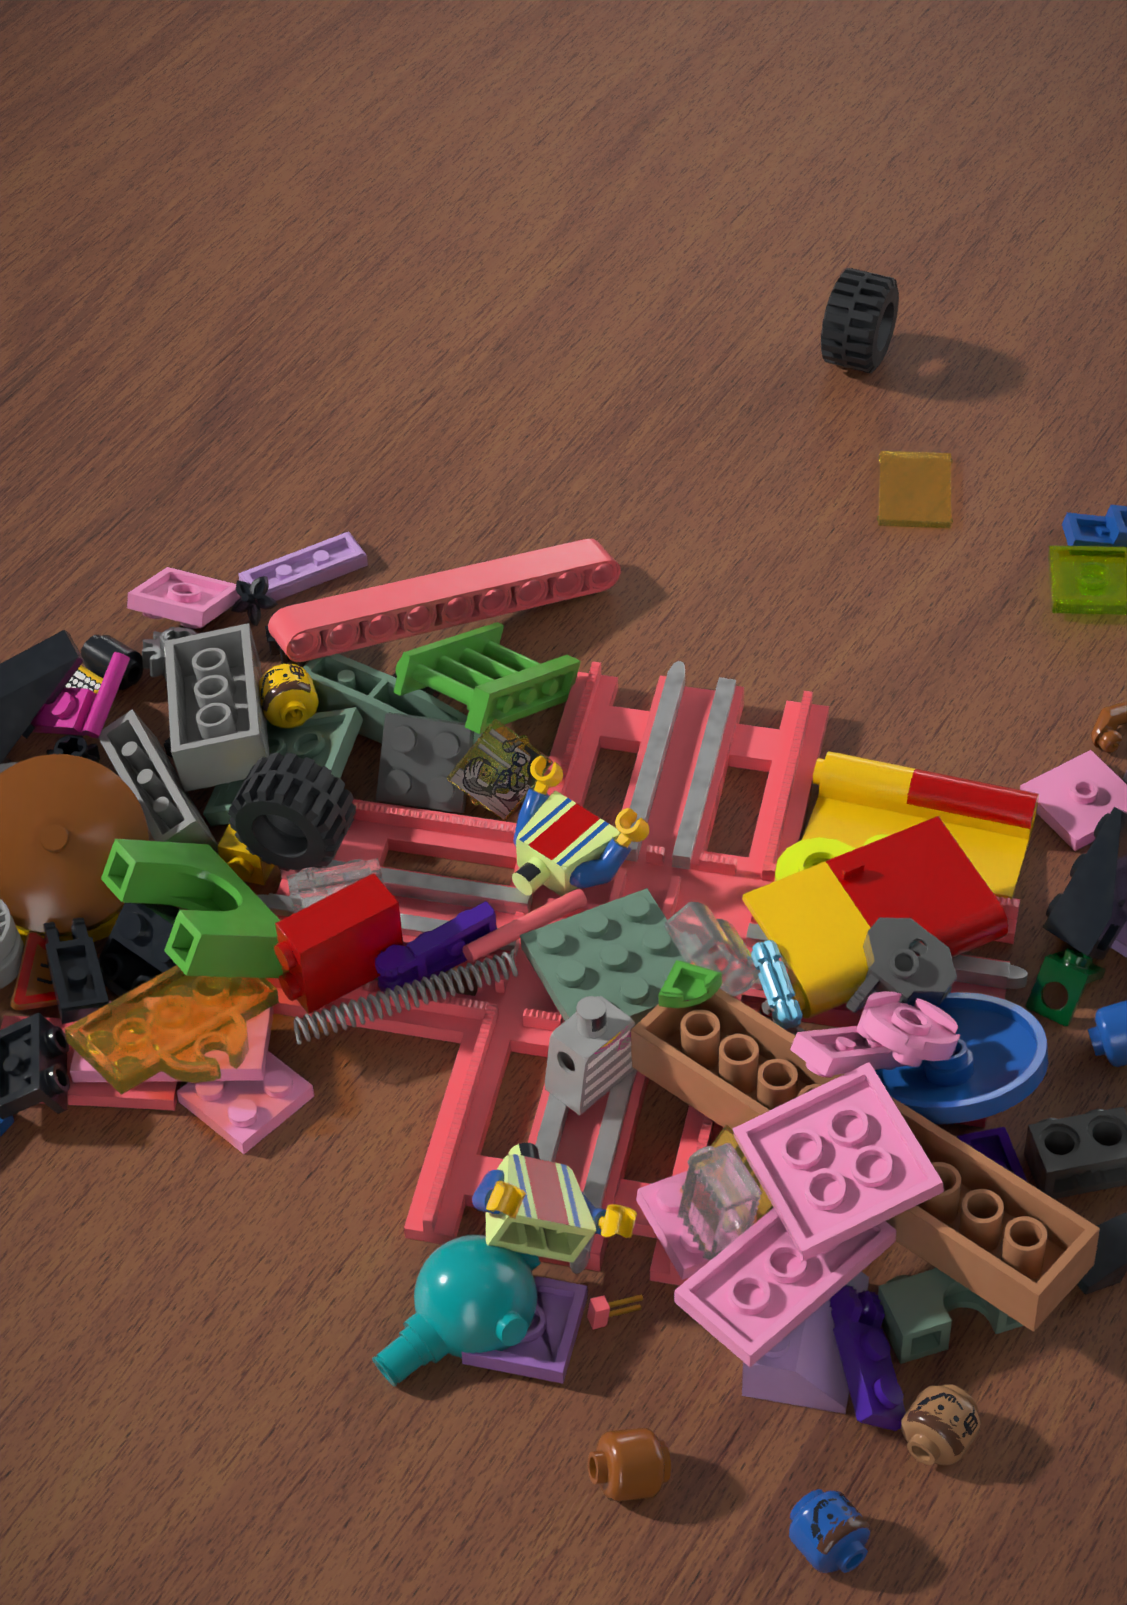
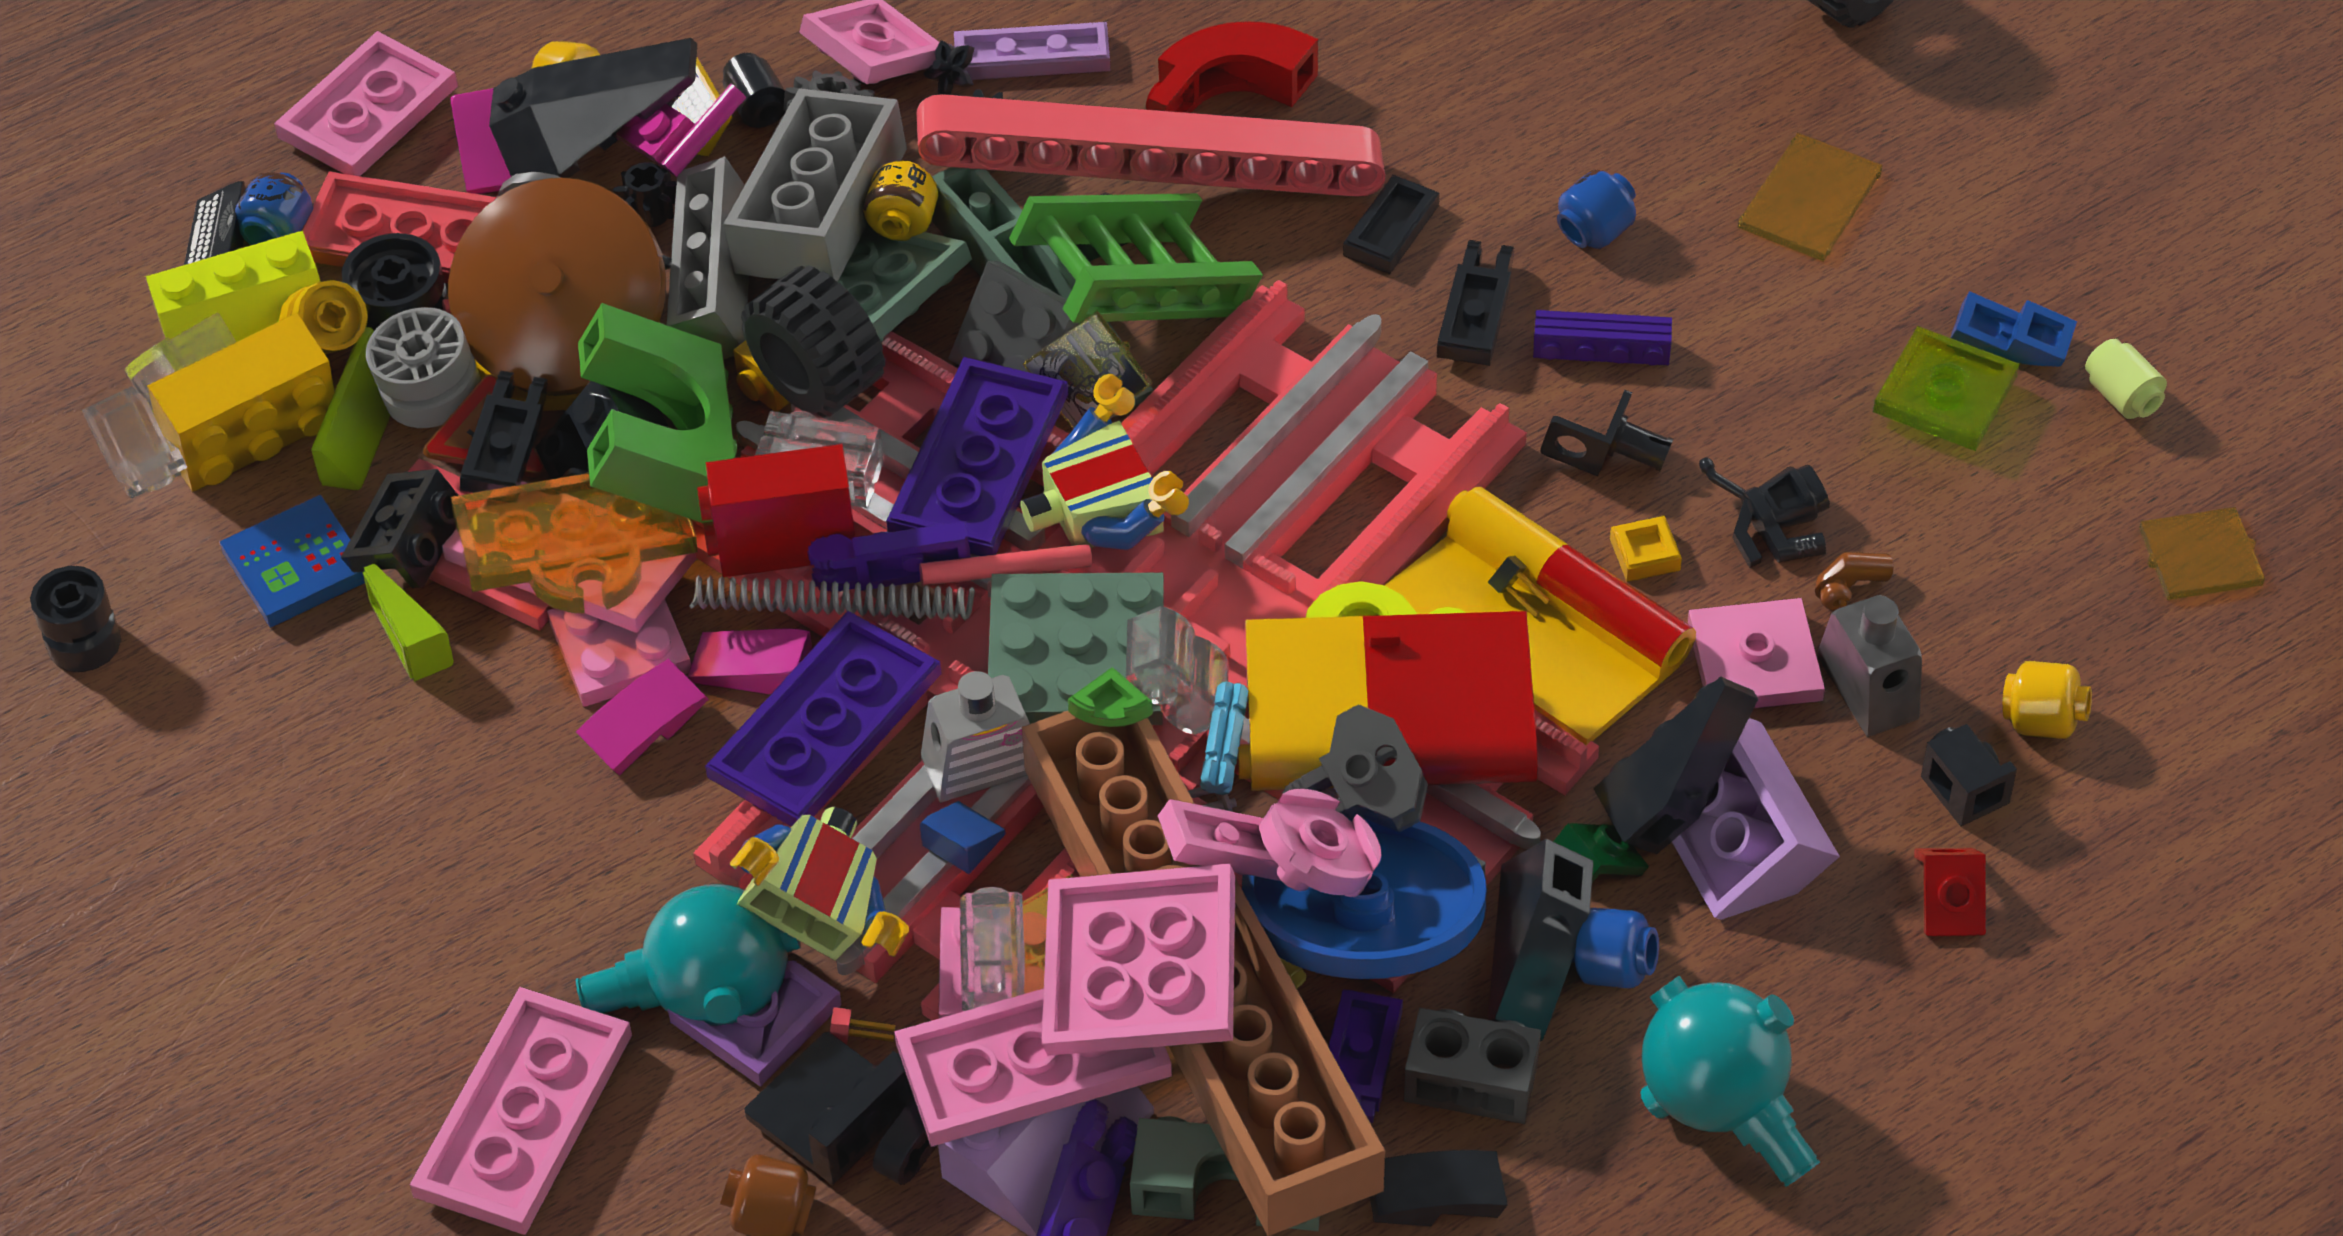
camera: 25 degrees right, 5 degrees up
(71, 1143) = (412, 631): none -> lime slope
(302, 1141) = (640, 713): none -> dark pink slope
(361, 1068) = (749, 658): none -> dark pink slope
(388, 1479) = (521, 1110): none -> bright pink plate
(452, 853) = (980, 452): none -> dark purple tile
(454, 1089) = (823, 719): none -> dark purple tile
(464, 524) = (1235, 58): none -> red arch
(614, 1133) = (960, 835): none -> blue slope
(631, 1373) = (831, 1105): none -> black bracket
(640, 601) = (1391, 224): none -> black tile
(708, 1373) = (903, 1147): none -> black beam
(739, 634) = (1475, 307): none -> black hinge
(782, 542) = (1596, 209): none -> blue head
(839, 626) = (1602, 337): none -> dark purple piece
(885, 803) = (1506, 576): none -> black piece
(891, 688) = (1620, 438): none -> black bracket
(960, 755) = (1645, 548): none -> yellow tile
(1034, 691) = (1781, 502): none -> black piece
(1074, 1037) = (1536, 933): none -> black slope

